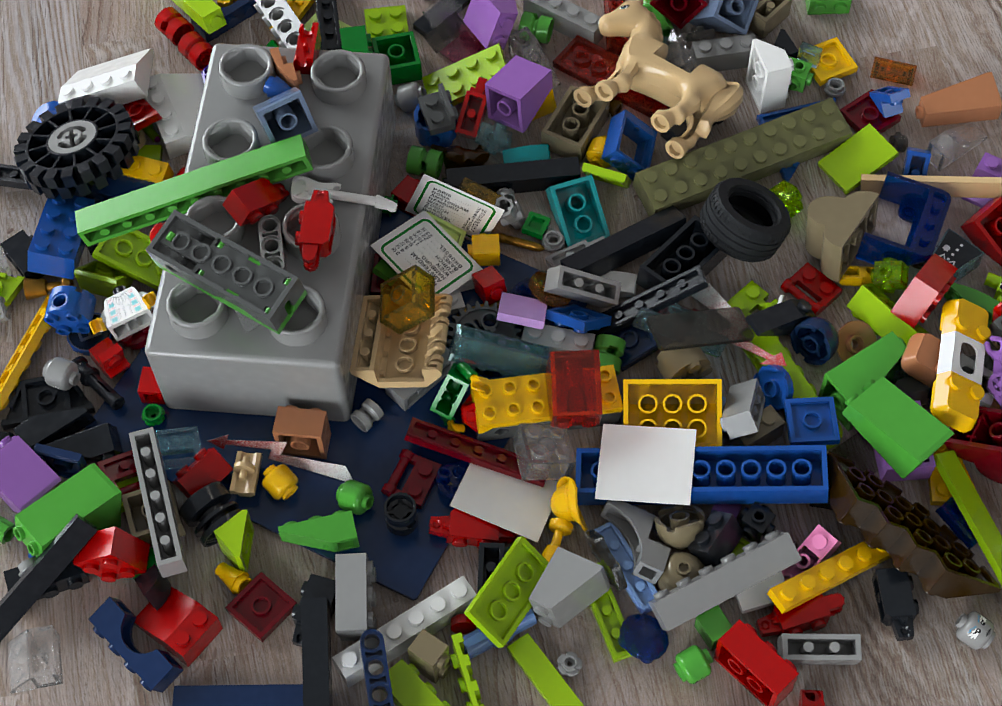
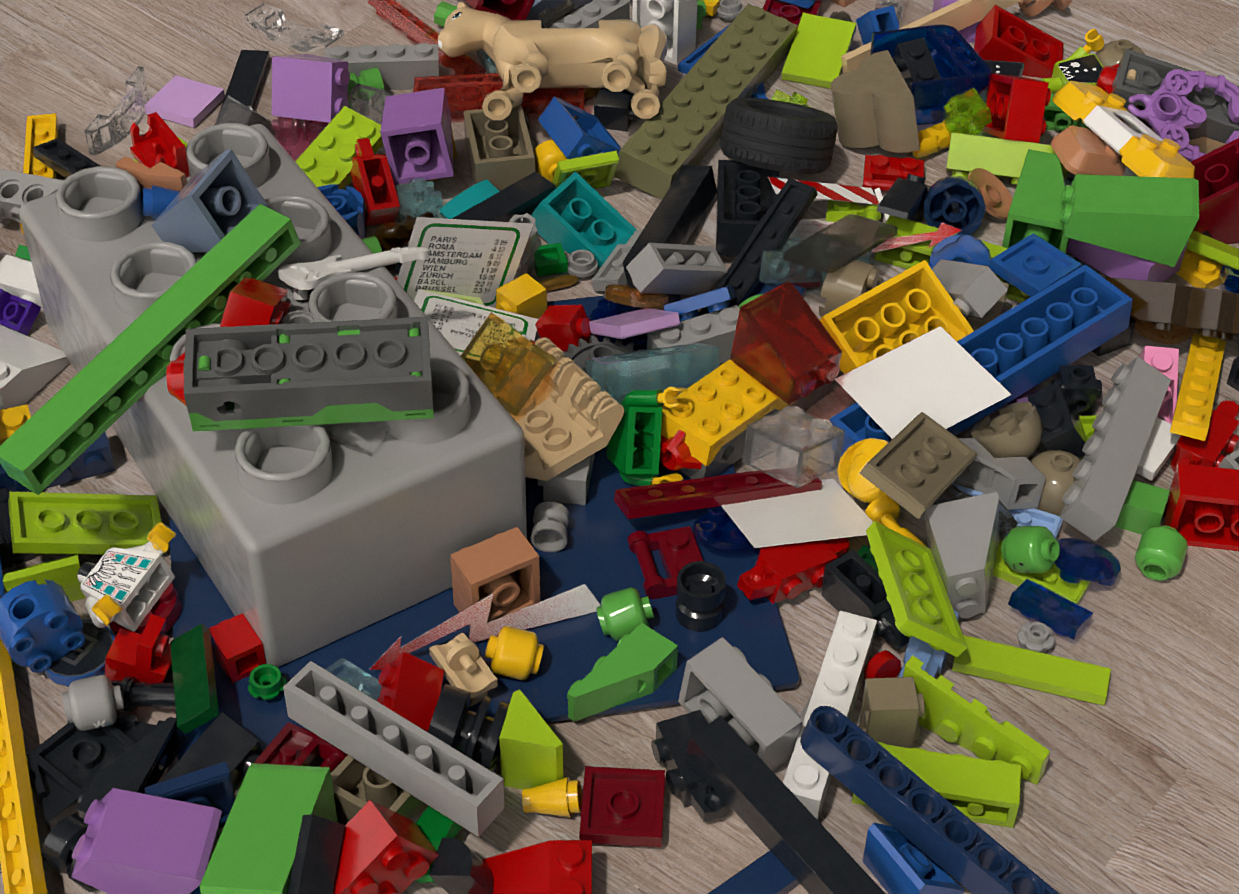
camera: 40 degrees left, 15 degrees down
(112, 392) = (194, 678): none -> dark green tile
(316, 229) = (370, 284): red hinge -> none
(438, 111) = (344, 190): dark grey bracket -> none
(579, 517) = (919, 464): none -> dark tan tile
(593, 653) = (1050, 609): none -> clear blue plate
(609, 610) = (1030, 549): none -> bright green head
(740, 278) = (833, 191): none -> sticker
(900, 217) = (915, 62): none -> black brick

